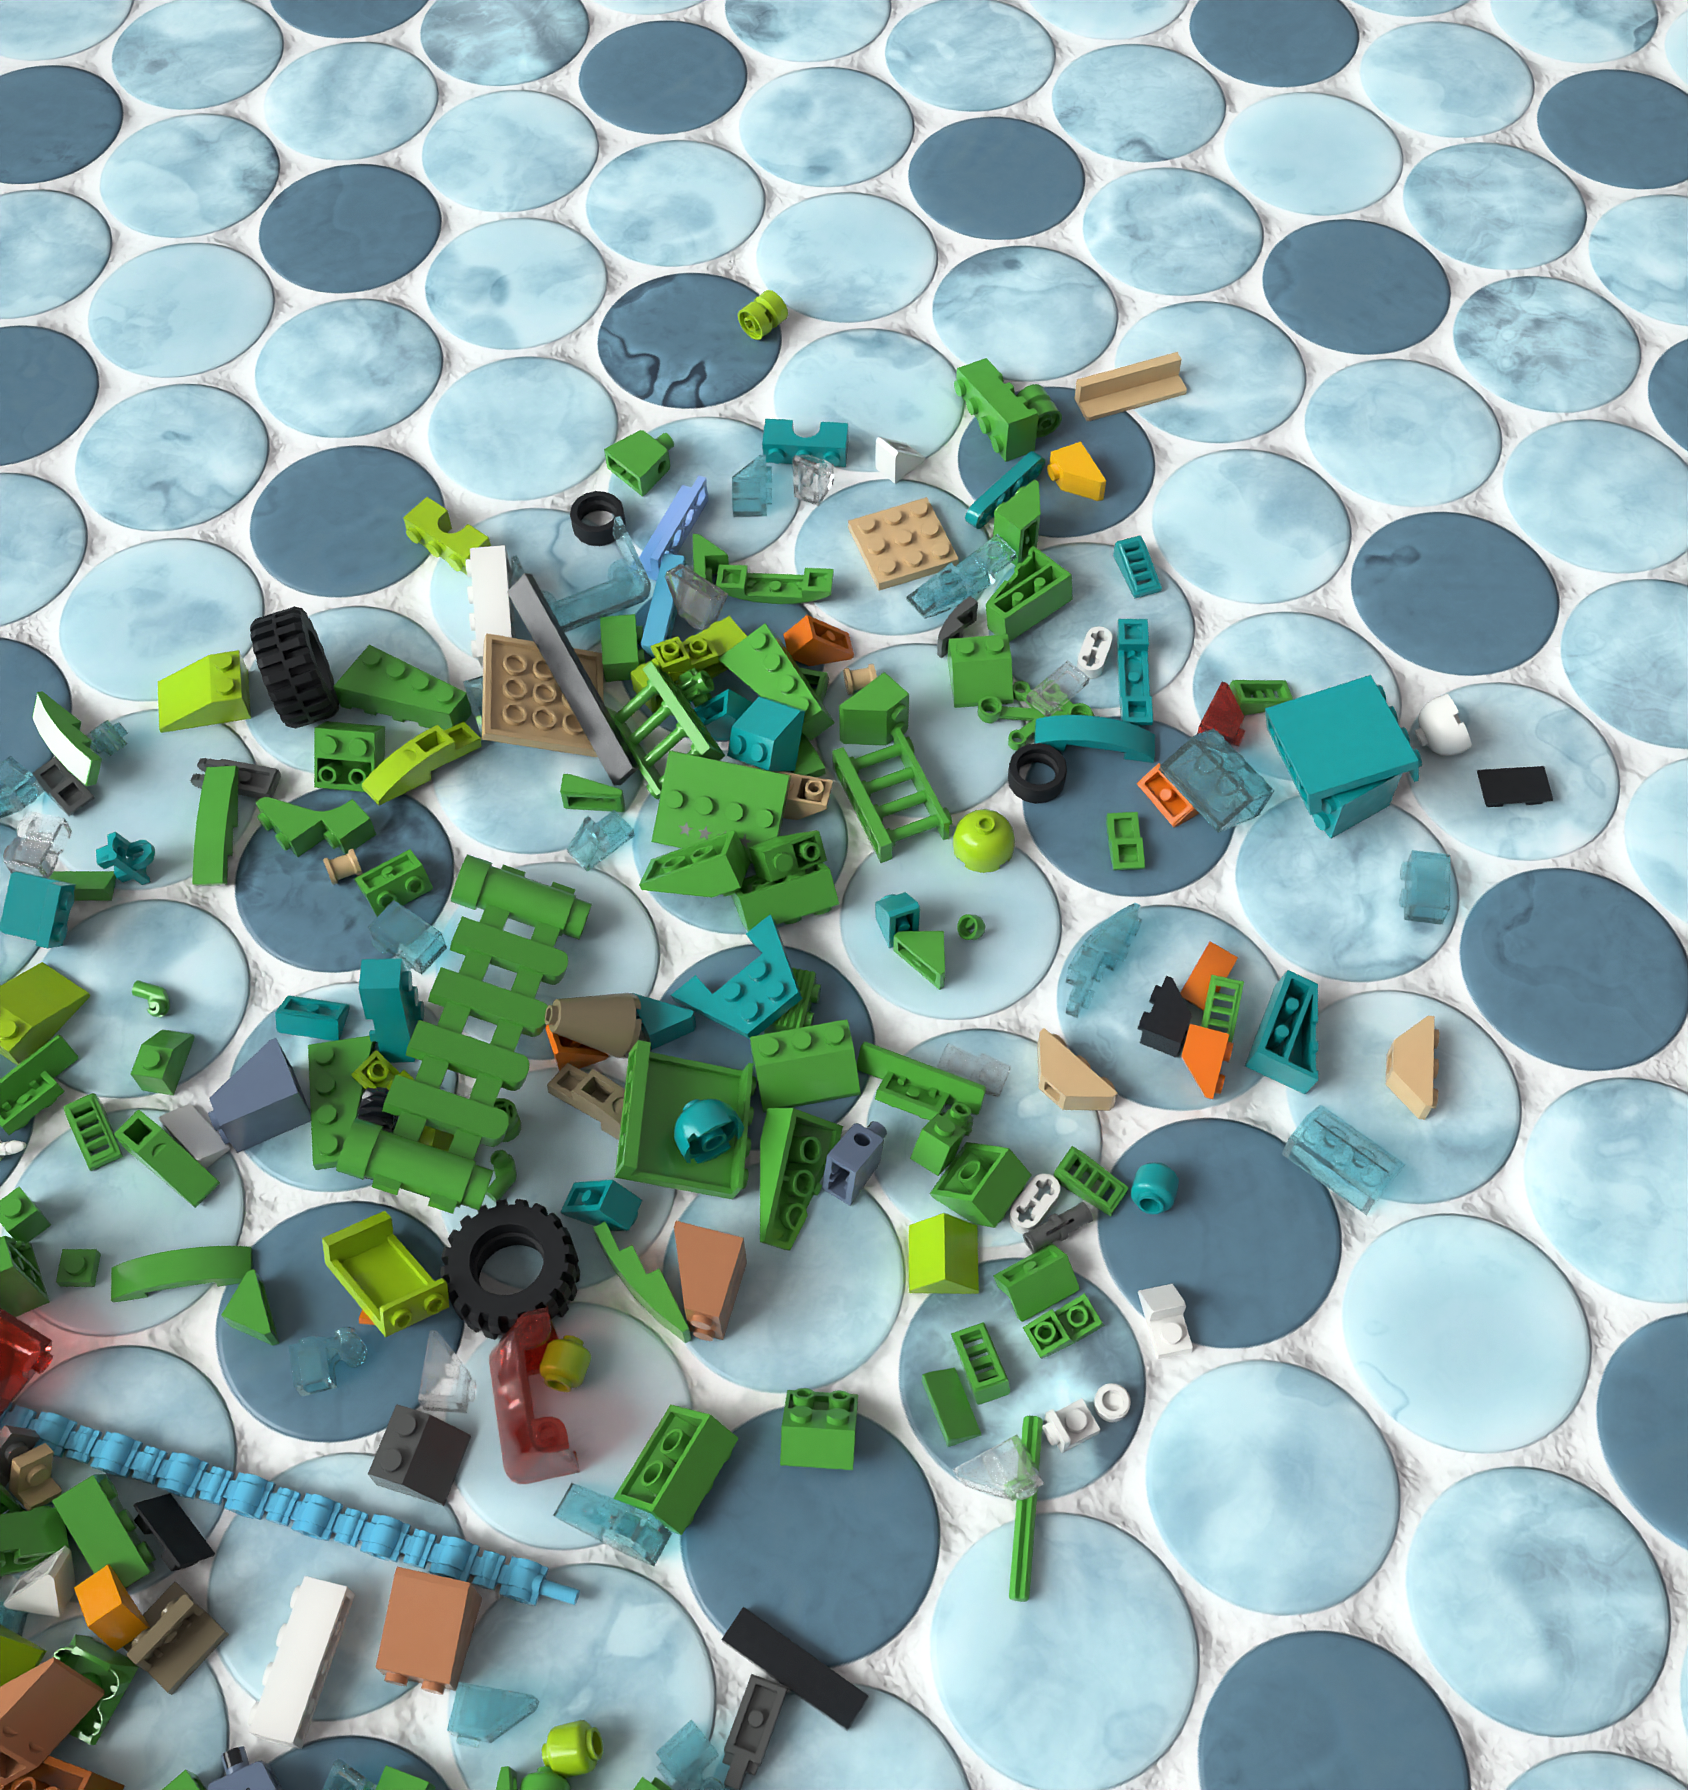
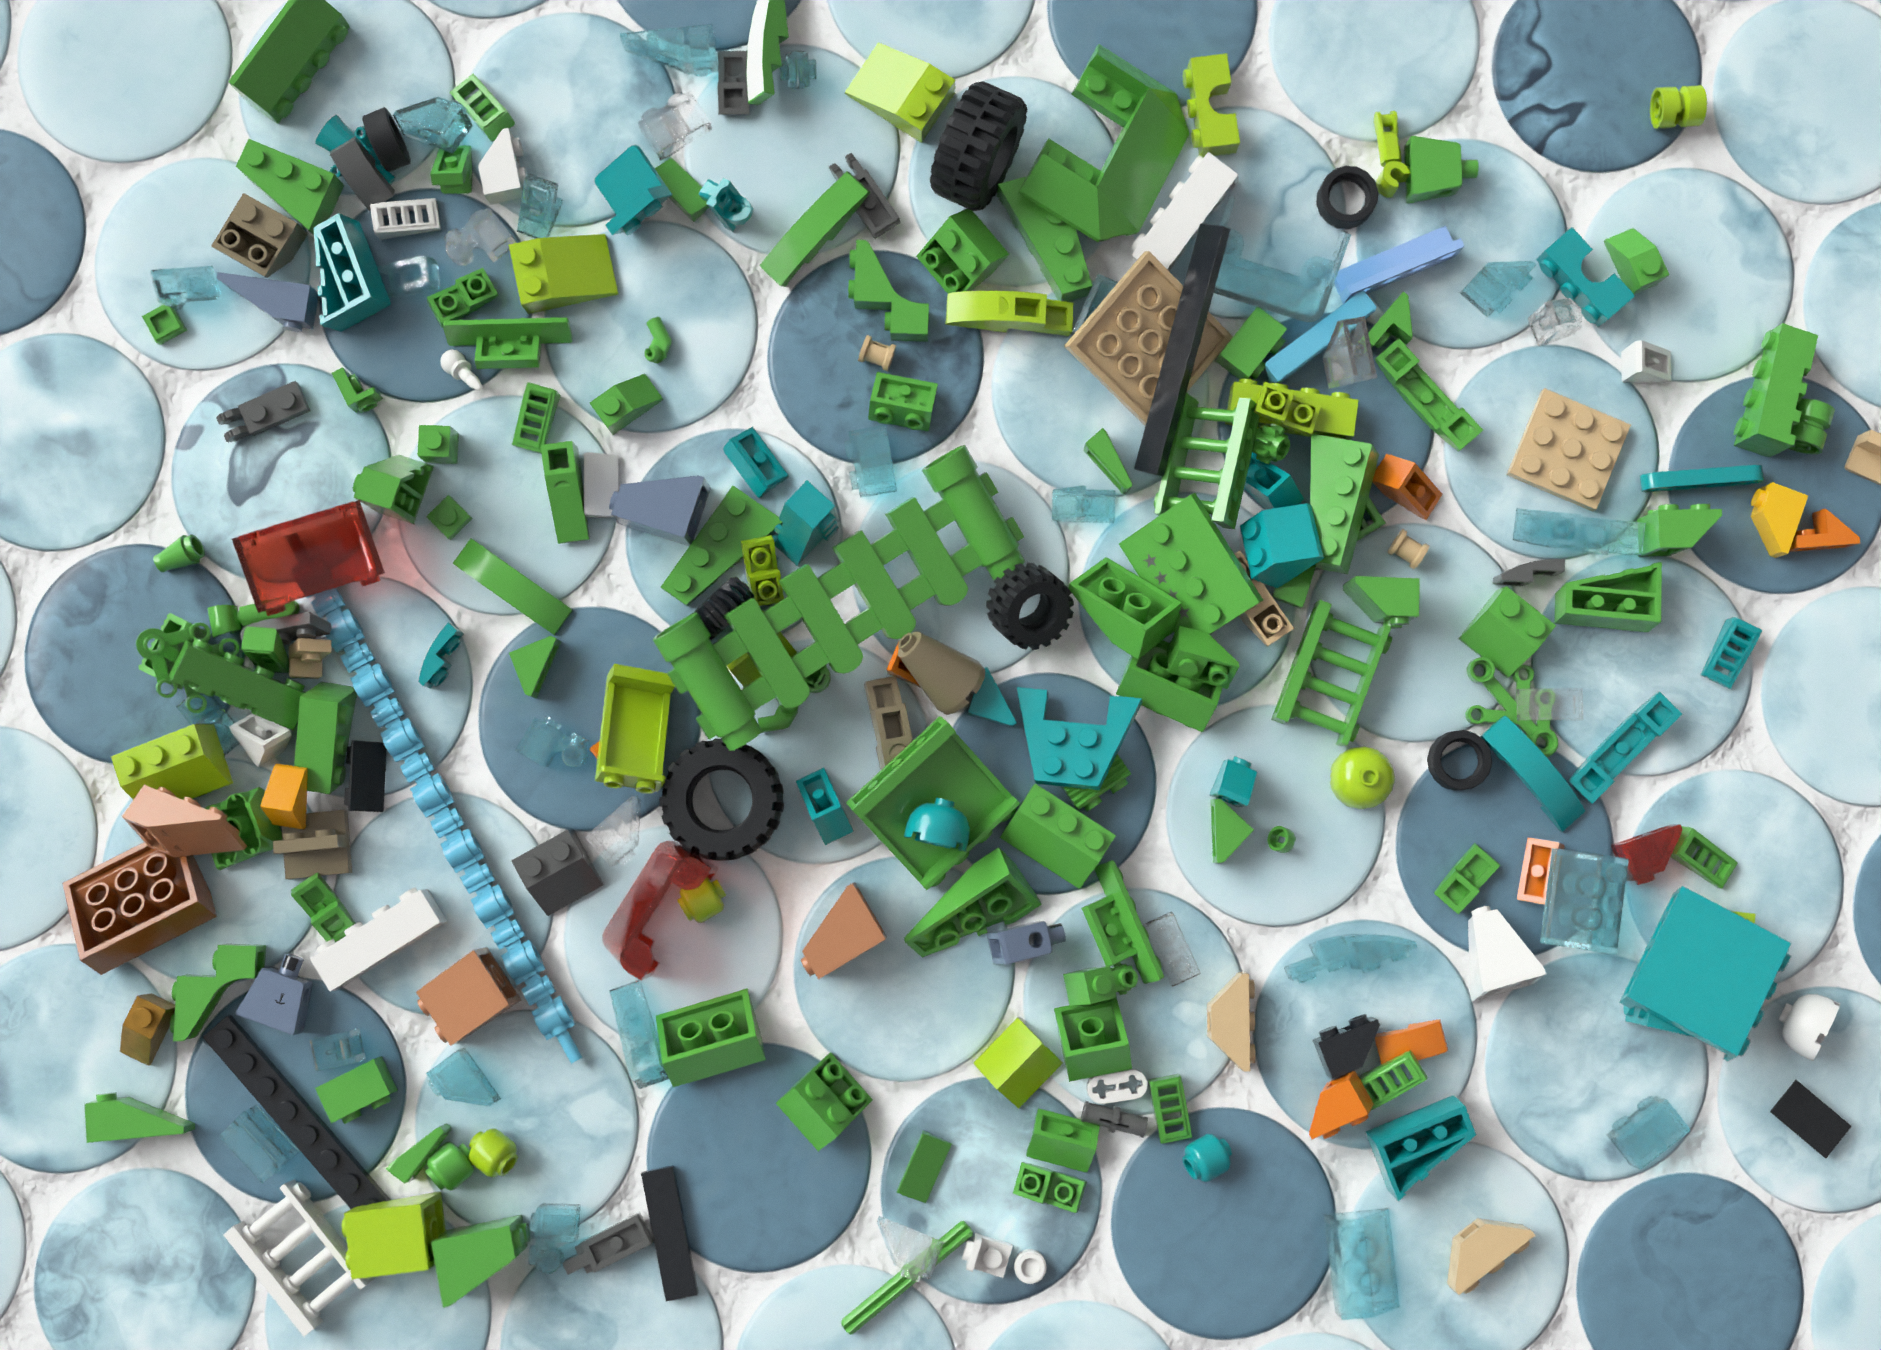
camera: 40 degrees right, 25 degrees up
(162, 1385) = (434, 665): none -> teal slope
(223, 1684) = (323, 907): none -> bright green slope
(426, 601) = (1124, 190): none -> bright green slope
(606, 934) = (1048, 617): none -> black tyre
(613, 480) = (1389, 154): none -> lime piece
(647, 1289) = (801, 901): bright green slope -> none
(829, 406) = (1636, 260): none -> bright green slope
(988, 1384) = (960, 1182): bright green slope -> none
(1089, 651) = (1618, 702): white beam -> none
(1117, 457) = (1827, 534): none -> orange slope
(1165, 1320) = (1121, 1248): white slope -> none
(1203, 866) = (1498, 956): none -> white slope

